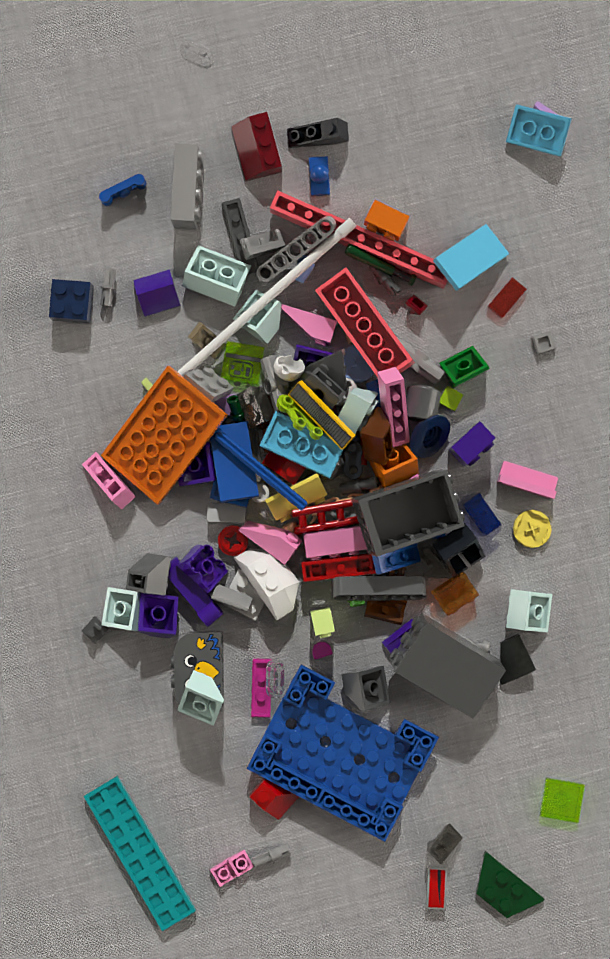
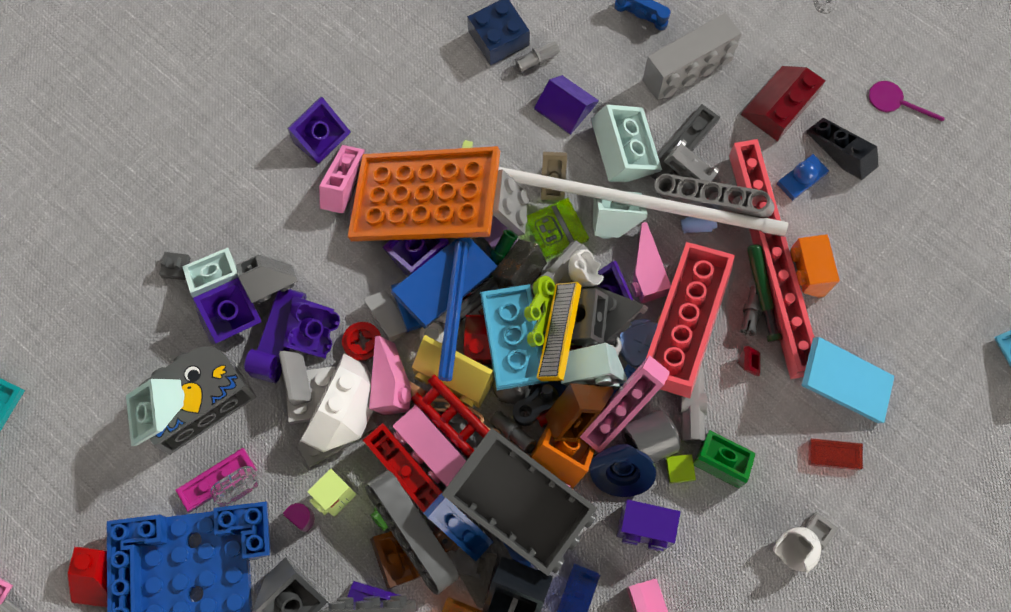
camera: 55 degrees right, 15 degrees down
(63, 474) = (318, 130): none -> dark purple slope
(302, 73) = (889, 97): none -> magenta piece
(546, 364) = (799, 549): none -> white hair

